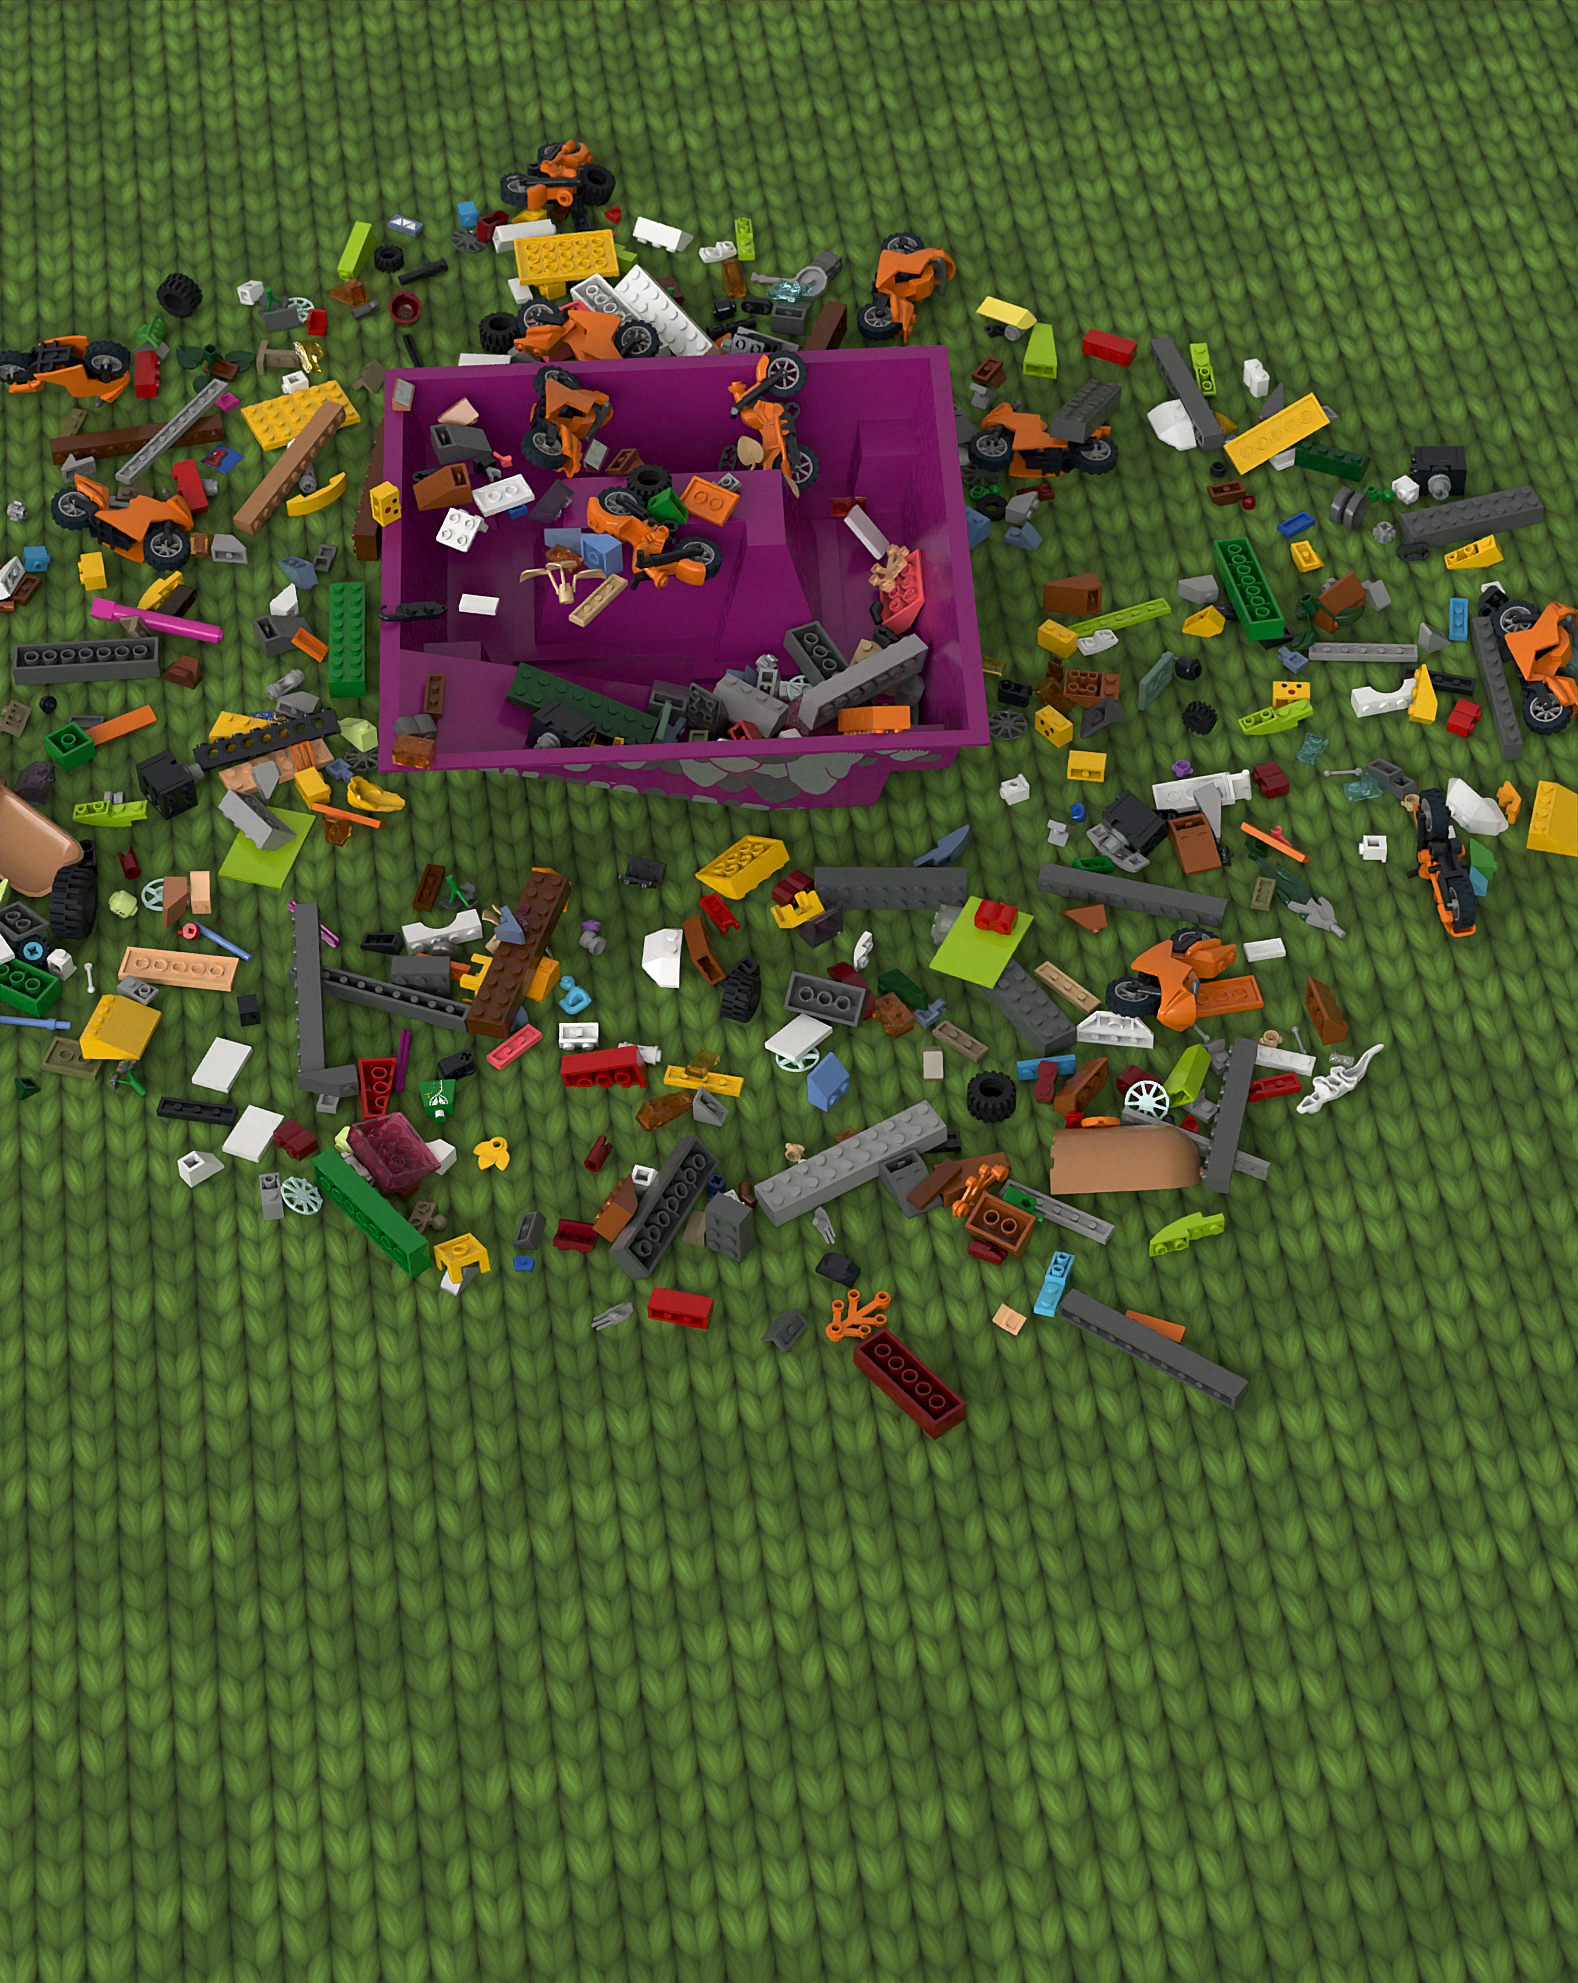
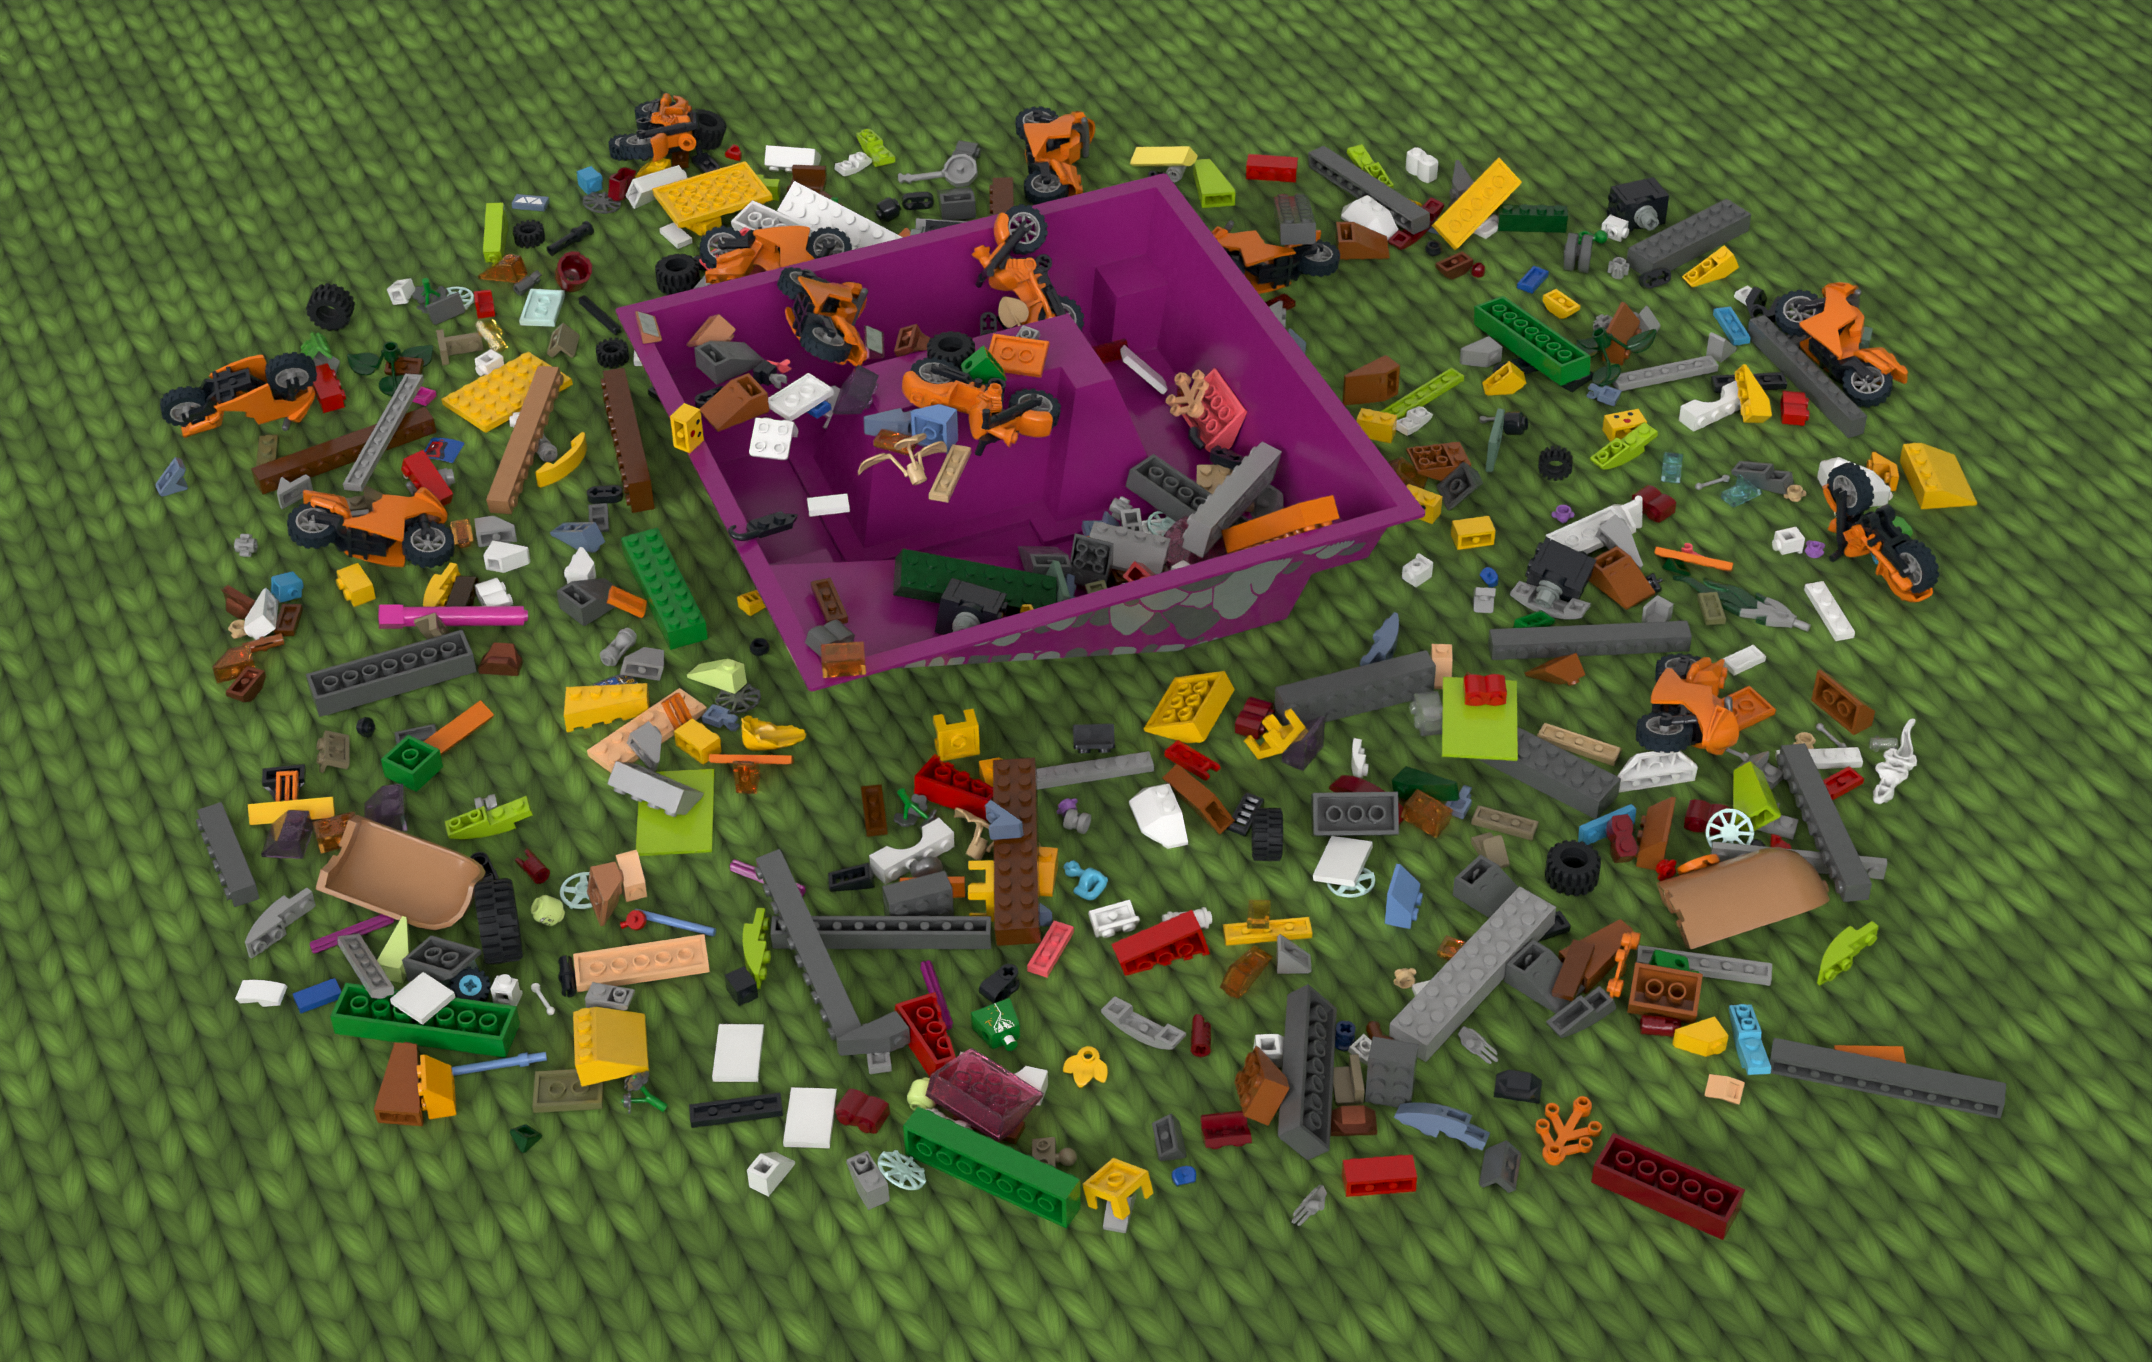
camera: 20 degrees left, 5 degrees down
(115, 964) = (567, 976): none -> black pin
(168, 783) = (541, 774): black piece -> none
(202, 609) = (493, 593): none -> white brick
(228, 576) = (505, 557): none -> white slope
(273, 981) = (755, 946): none -> lime slope
(330, 728) = (570, 743): black brick -> none
(338, 537) = (604, 494): none -> black beam
(368, 337) = (542, 307): none -> light aqua tile
(497, 881) = (952, 788): none -> red wedge
(521, 918) = (1006, 804): clear pink arm -> none
(526, 843) = (957, 739): none -> yellow panel
(553, 1132) = (1141, 1028): none -> light grey slope
(630, 900) = (1094, 770): none -> light grey plate
(666, 261) = (810, 176): none -> reddish brown panel
(686, 1258) = (1353, 1121): none -> copper slope
(722, 328) = (898, 227): black pin -> none
(732, 279) = (884, 181): clear orange slope -> none
(753, 1276) = (1434, 1118): none -> sand blue slope
(787, 290) = (942, 181): clear light blue plate -> none
(904, 1089) = (1483, 886): none -> dark grey slope
(926, 1223) = (1582, 1013): none -> dark grey slope
(985, 882) = (1442, 657): none -> light nougat slope
(1015, 1271) = (1702, 1037): none -> yellow slope
(1056, 669) = (1393, 449): reddish brown plate -> none
(1148, 446) = (1360, 242): none -> dark orange slope
(1195, 453) = (1404, 238): none -> dark red slope
(1210, 884) = (1657, 610): none -> light grey panel
(1373, 924) = (1829, 611): none -> white plate
(1396, 861) = (1814, 549): none -> medium lavender plate

